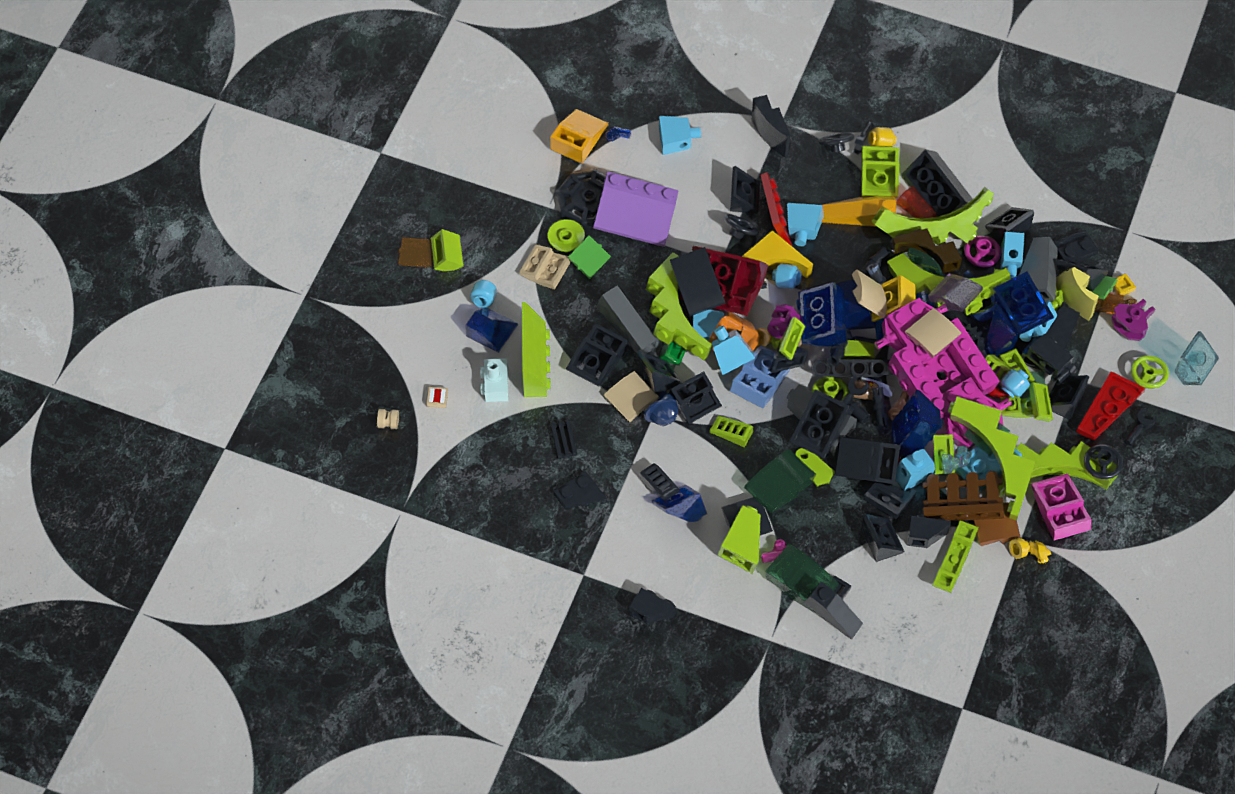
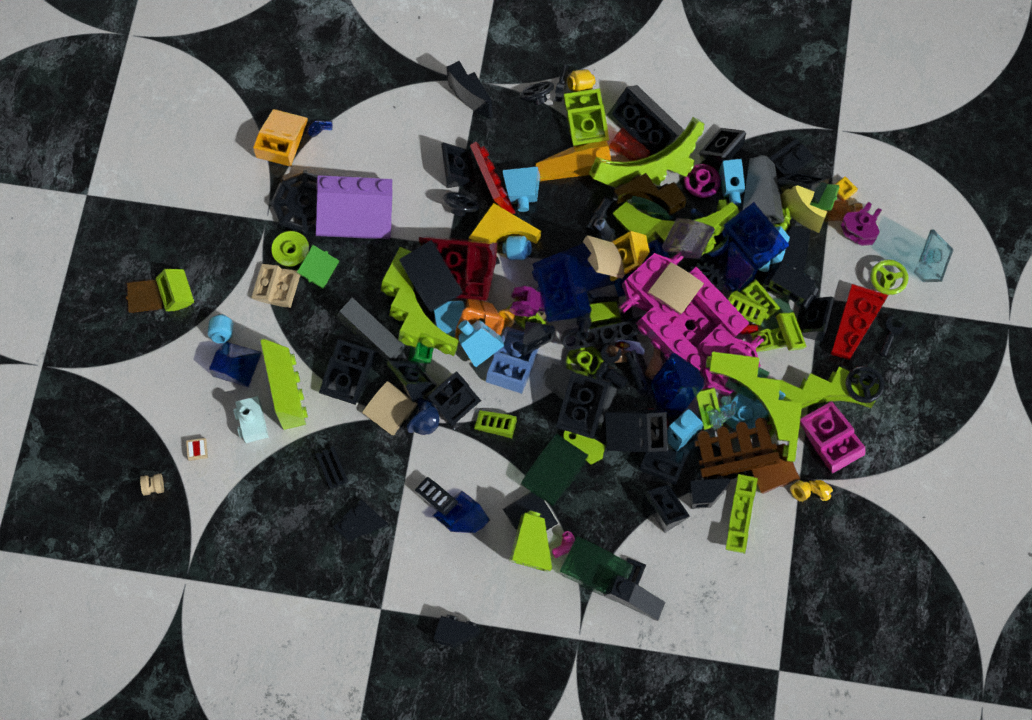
camera: 10 degrees left, 10 degrees up
(676, 134) = (378, 116): medium azure torso -> none
(791, 338) = (536, 319): lime slope -> none
(1015, 383) = (763, 318): medium azure head -> none

